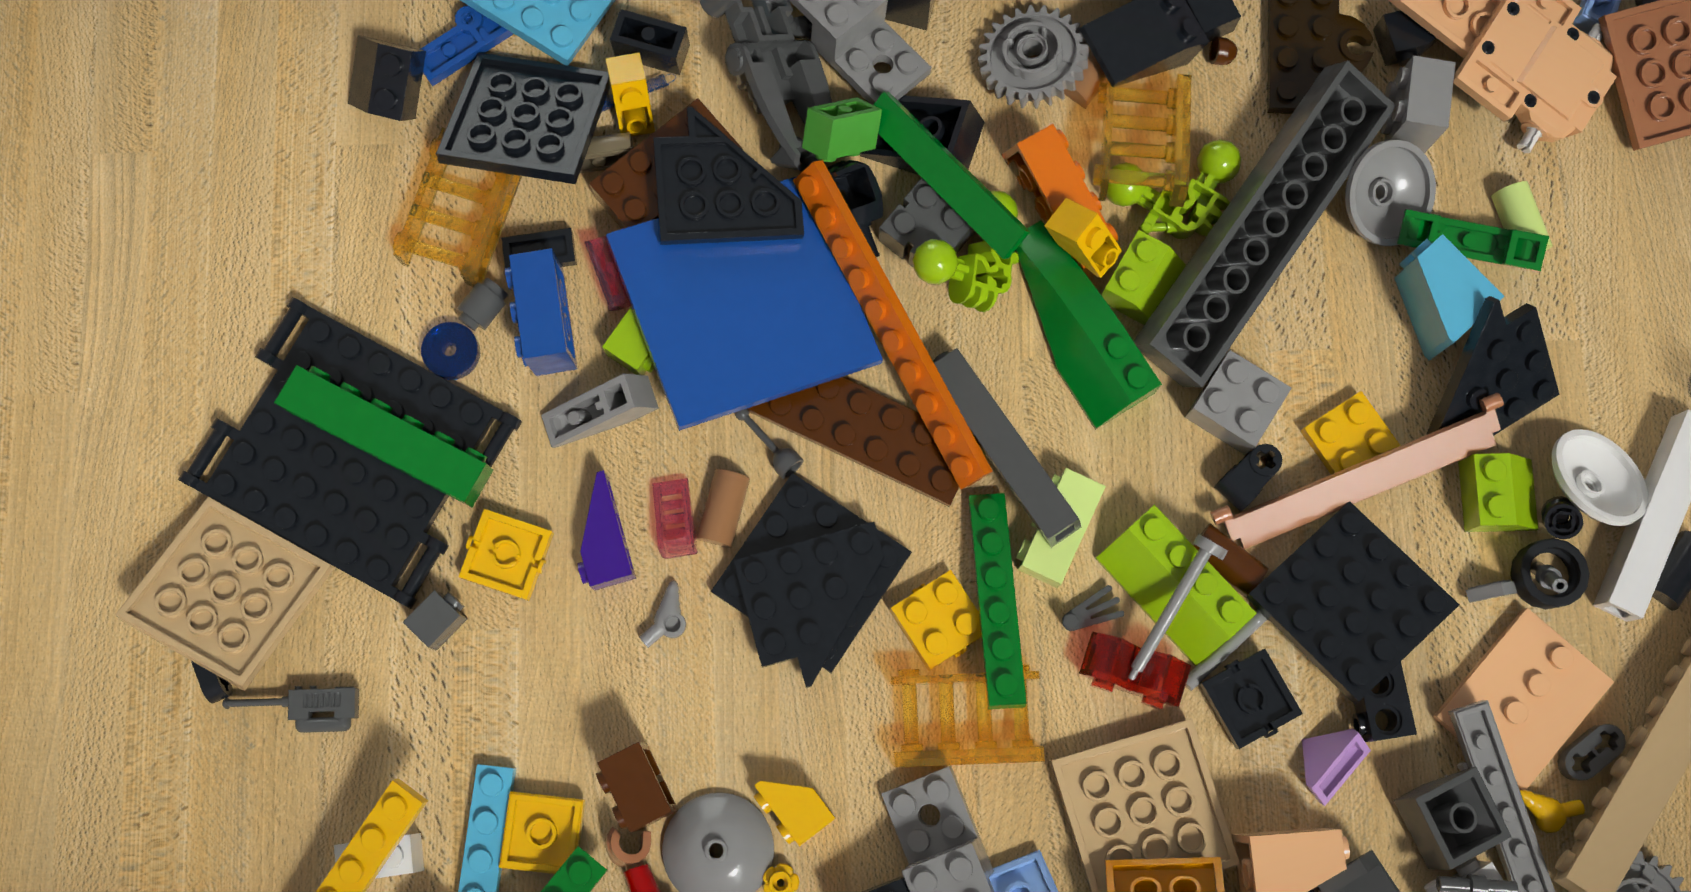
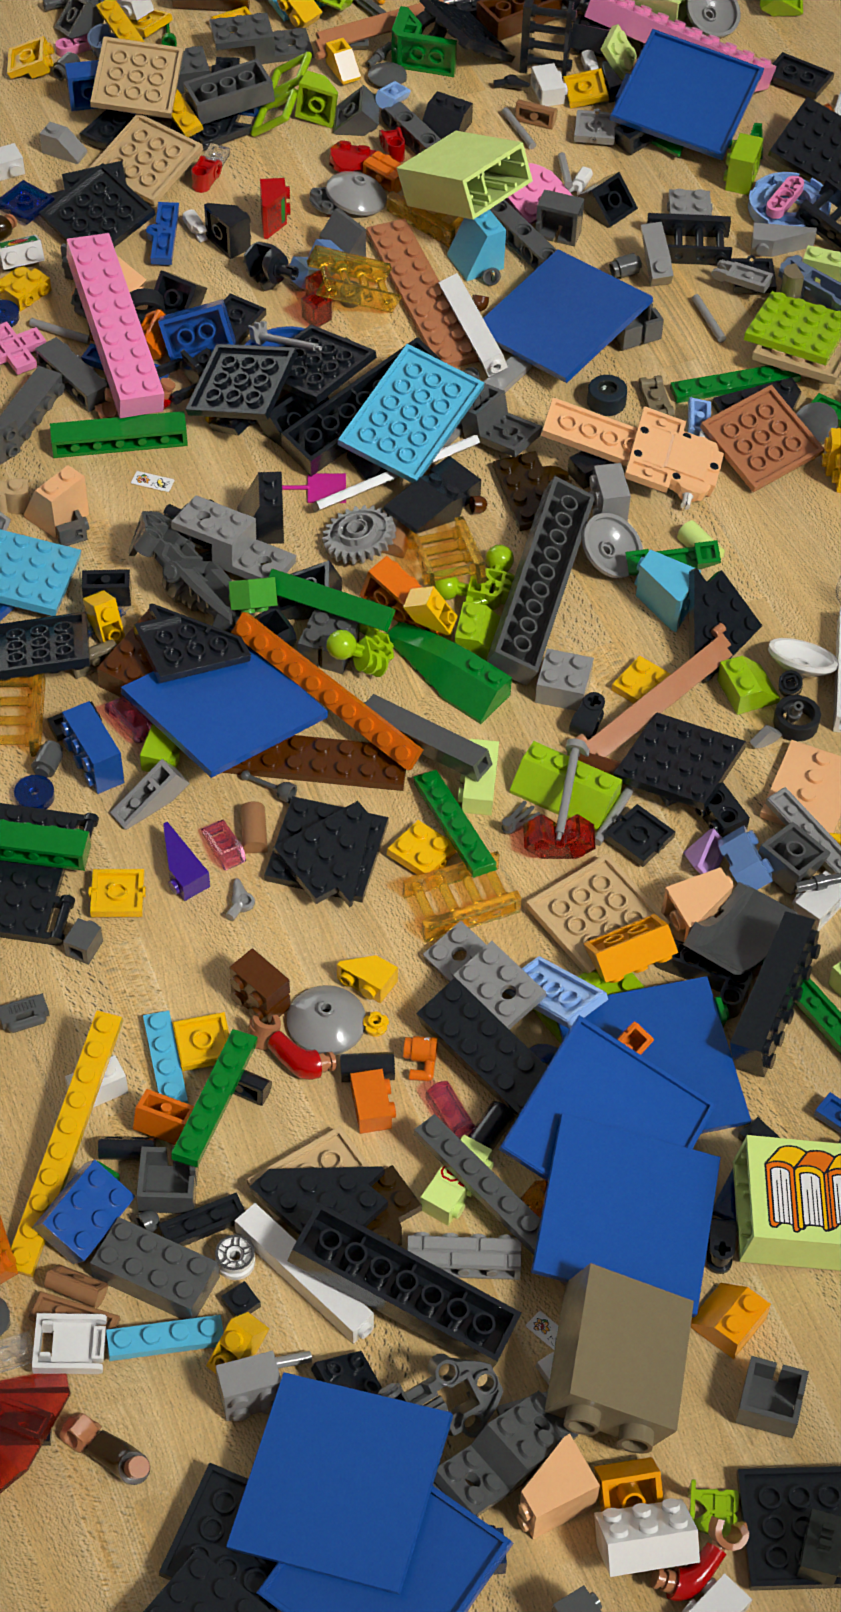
camera: 20 degrees left, 25 degrees down
(1383, 789) = (744, 860): none -> medium blue brick

